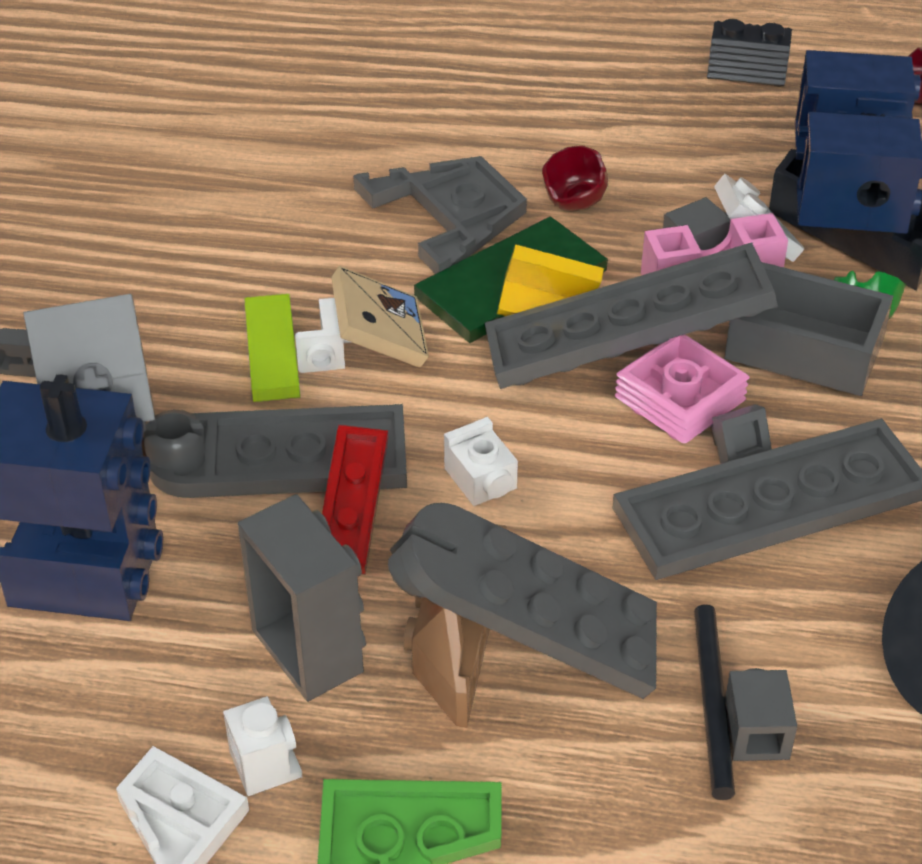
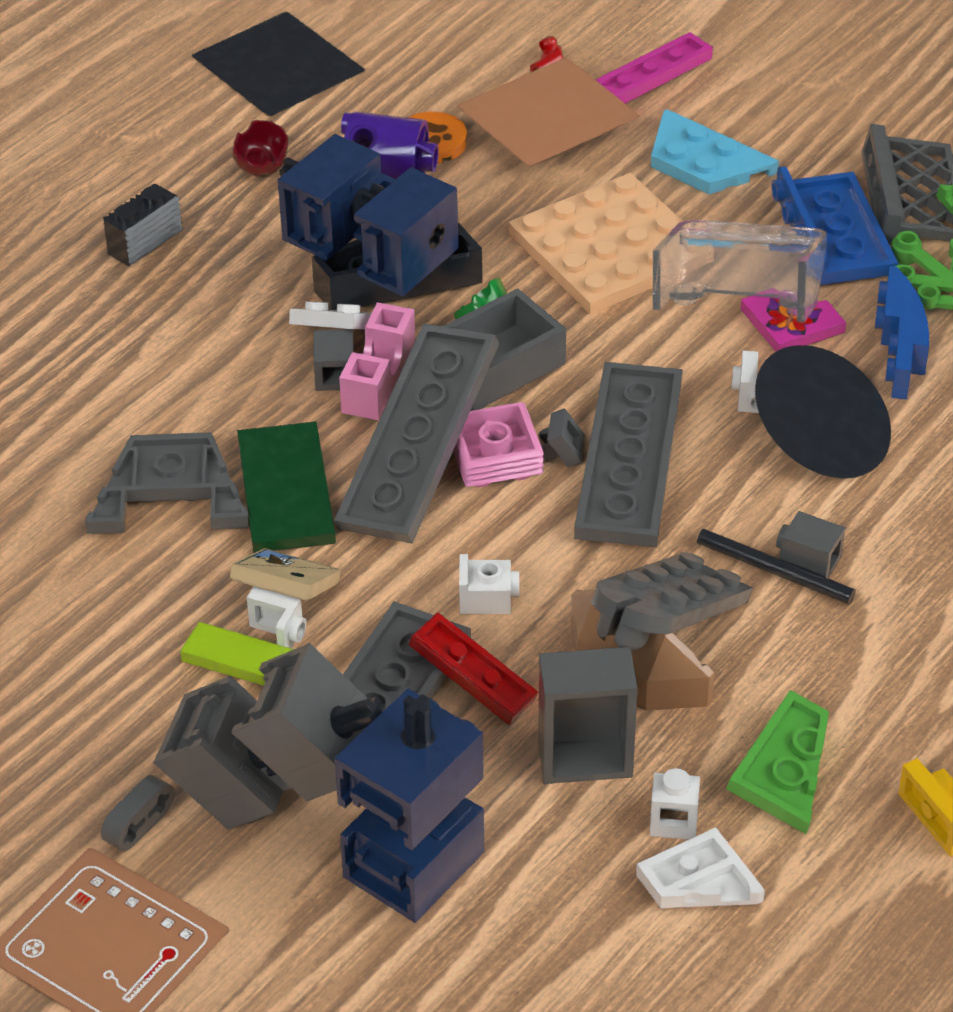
camera: 60 degrees left, 0 degrees up
(543, 278) = (330, 465): yellow panel -> none
(575, 178) = (213, 393): dark red hair -> none

